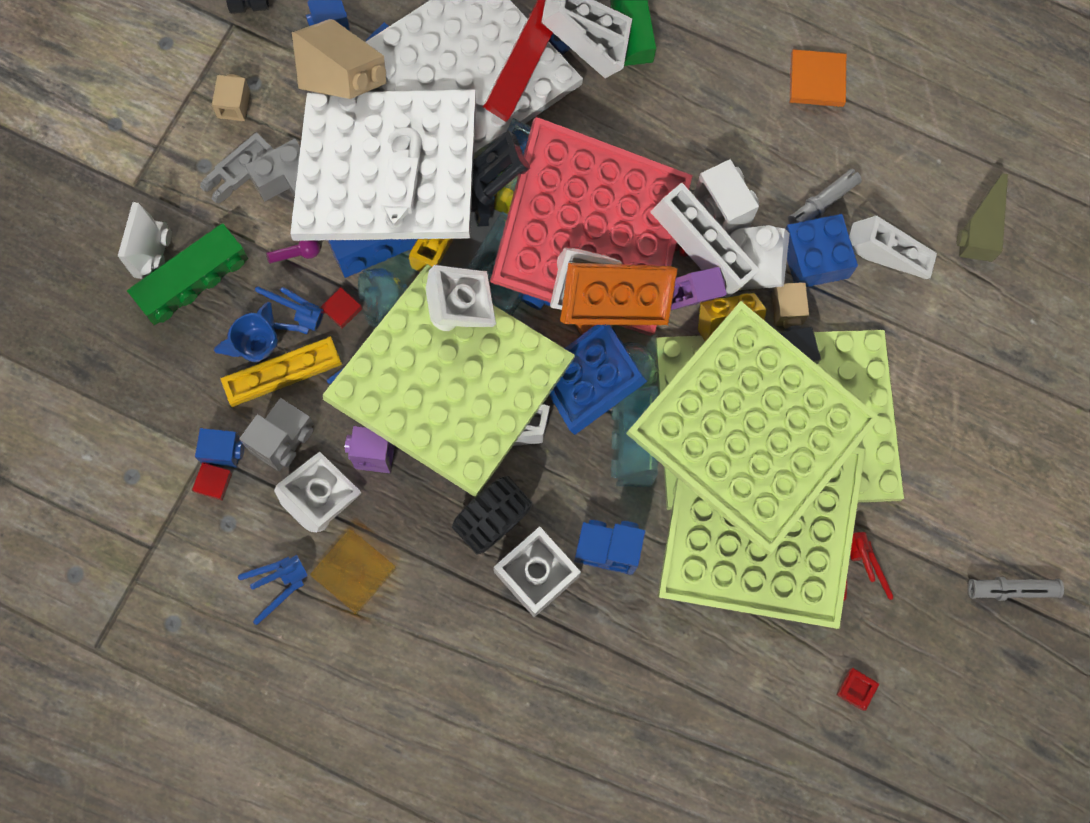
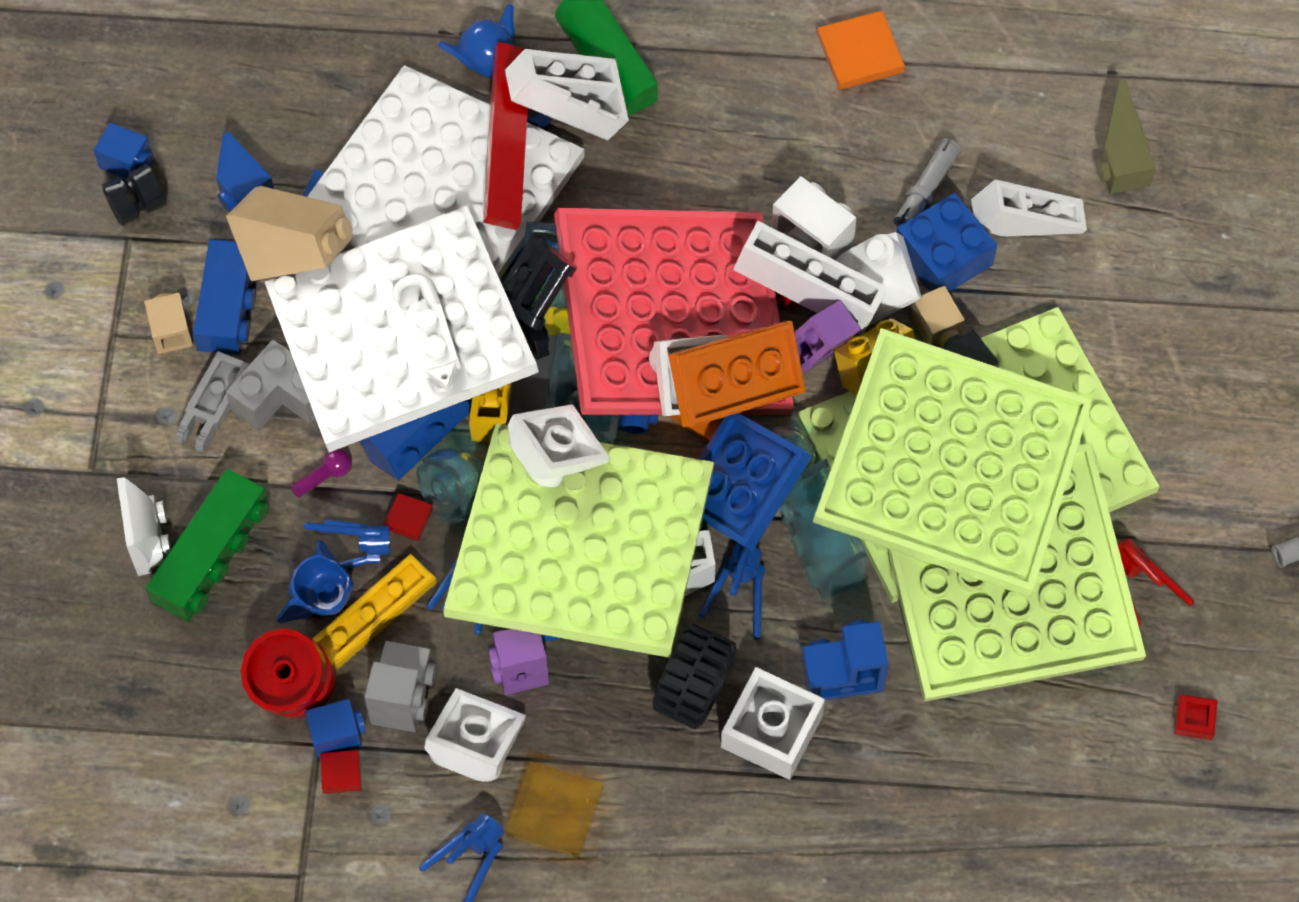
camera: 15 degrees left, 10 degrees down
(199, 395) = (285, 652): none -> red wheel
(275, 97) = (223, 301): none -> blue brick
(565, 442) = (742, 566): none -> blue plant

